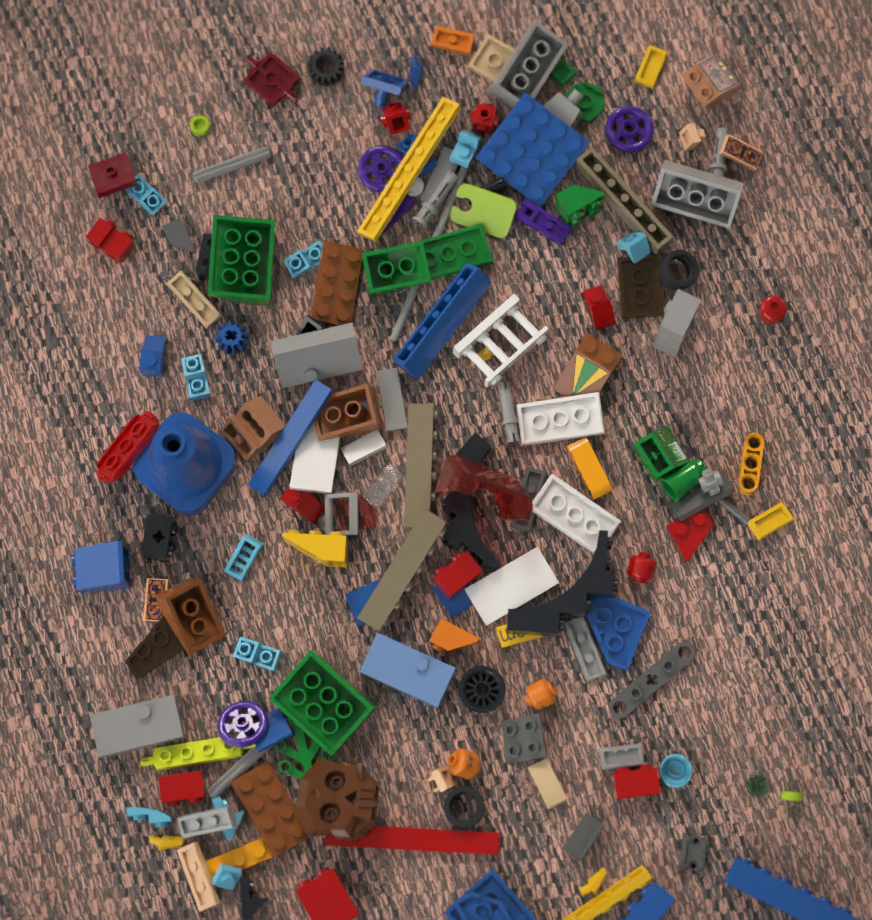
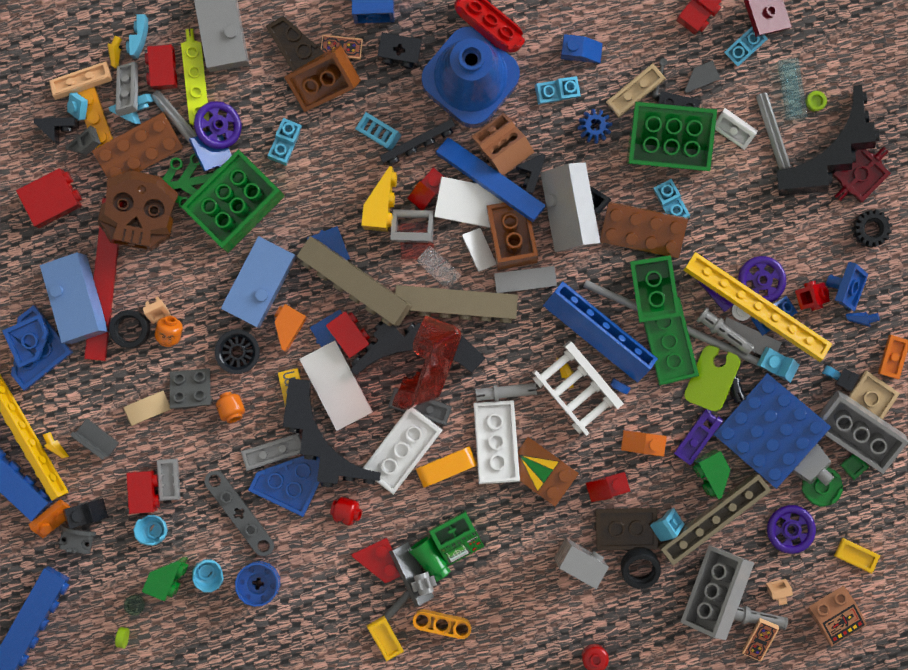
camera: 90 degrees right, 10 degrees up
(188, 148) = (792, 89): none -> clear light blue tile
(231, 200) = (735, 129): none -> white slope
(259, 521) = (410, 147): none -> black plate
(265, 865) = (84, 142): none -> dark grey tile
(274, 121) = (817, 173): none -> black arch
(277, 395) = (534, 168): none -> black slope
(434, 867) = (74, 298): none -> medium blue brick
(477, 84) = (845, 379): none -> black piece
(484, 118) = (801, 384): red brick -> none
(496, 299) = (618, 385): none -> blue tile
(552, 273) = (643, 443): none -> orange slope
(664, 842) = (85, 513): none -> black slope
(671, 879) = (49, 519): none -> orange plate
(723, 701) = (202, 580): none -> medium azure hair
(724, 750) = (163, 581): none -> green slope
(732, 643) = (249, 592): none -> blue wheel

